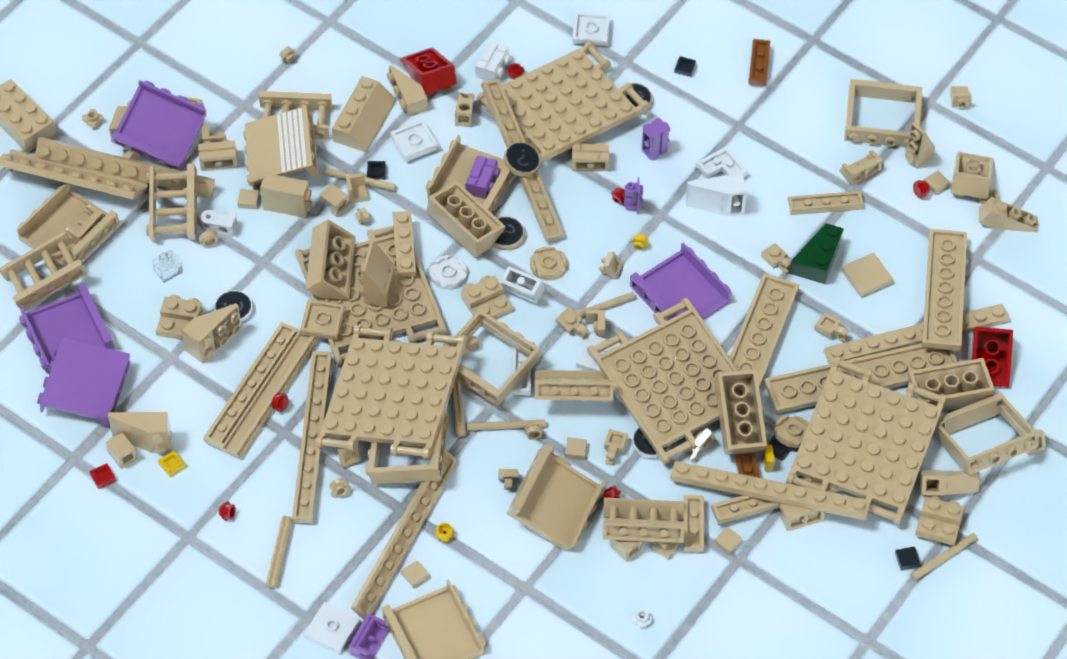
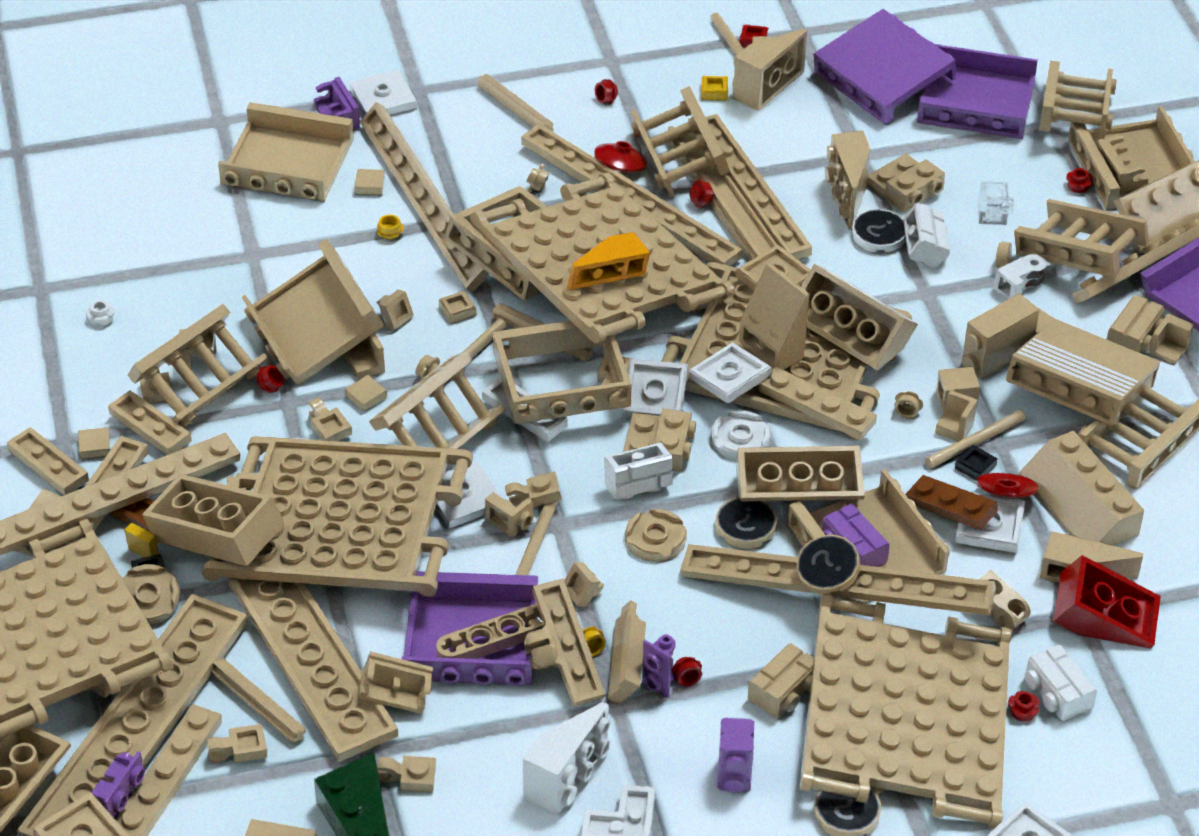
camera: 130 degrees right, 10 degrees down
(107, 248) = (1079, 180): none -> red plate
(115, 486) = (726, 33): none -> tan bar
(226, 276) = (926, 235): none -> white brick
(242, 416) = (697, 123): none -> tan fence
(282, 462) = (620, 157): none -> red dish
(380, 141) = (1007, 485): none -> red dish
(407, 363) = (611, 260): none -> light orange slope
(420, 156) = (952, 502): none -> dark orange plate
(420, 288) = (730, 372): none -> white plate
(453, 316) = (656, 386): none -> white plate
(474, 456) = (457, 307): none -> tan tile
(634, 220) = (626, 654): none -> tan piece
(659, 238) = (563, 643): none -> tan plate
(674, 277) = (493, 631): none -> tan beam
(743, 288) = (395, 682): none -> tan hinge
(762, 546) = (47, 461): none -> tan plate
(801, 340) = (258, 700): none -> tan axle
(895, 346) = (126, 774): none -> medium lavender hinge

